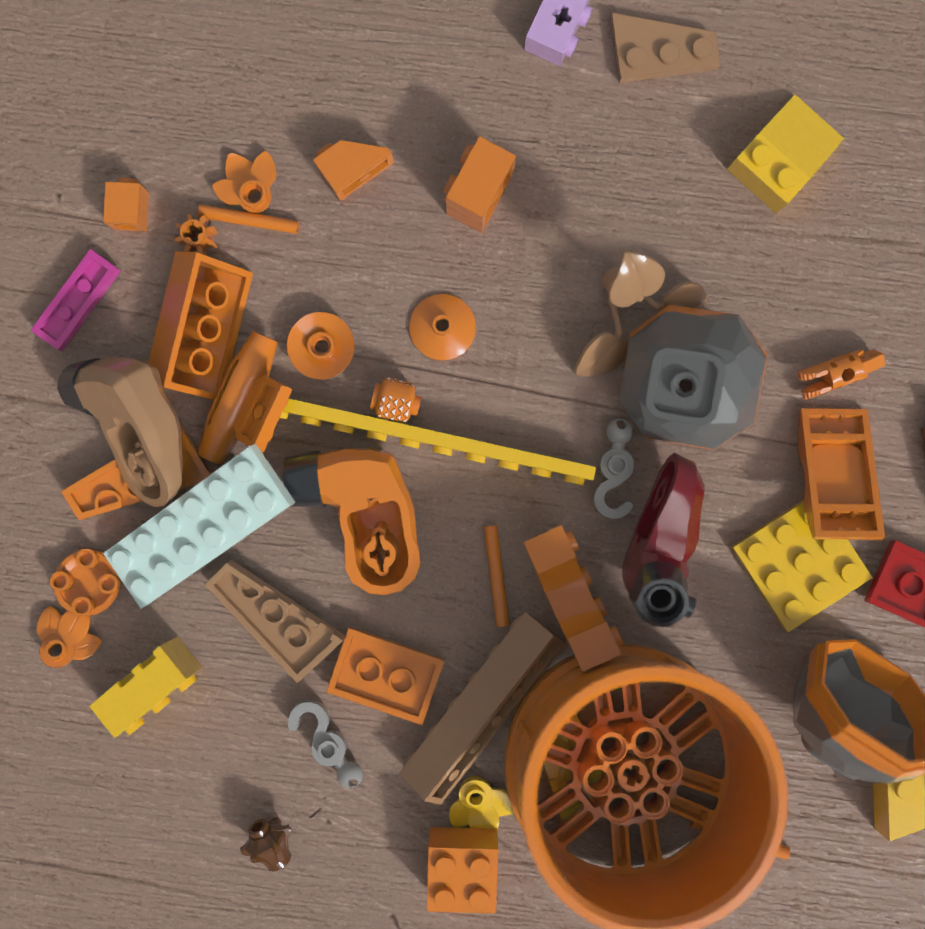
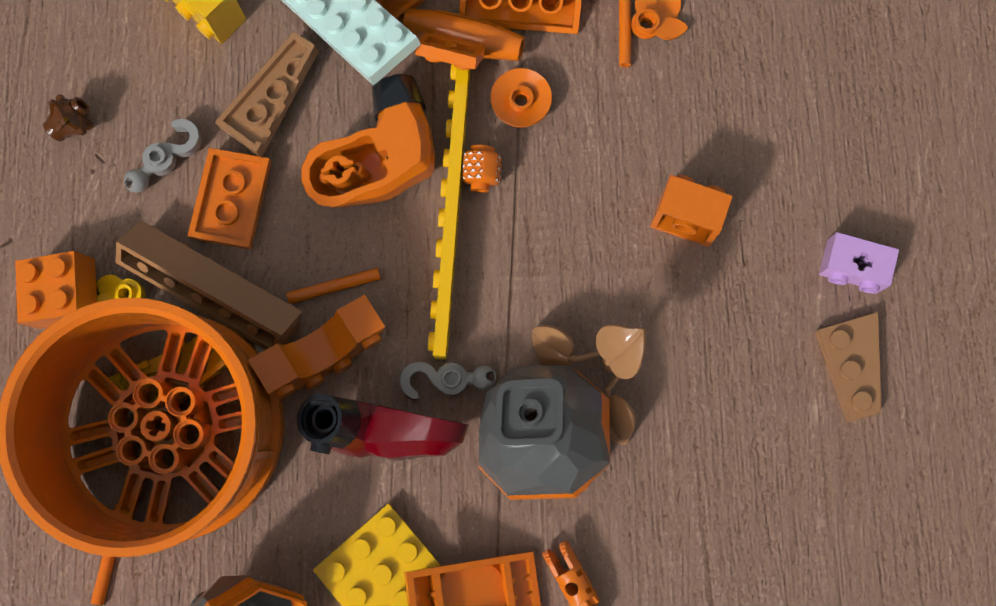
camera: 85 degrees right, 10 degrees down
(351, 165) = (687, 99): orange slope -> none
(442, 344) = (553, 218): orange dish -> none
(785, 154) = (779, 499): yellow slope -> none

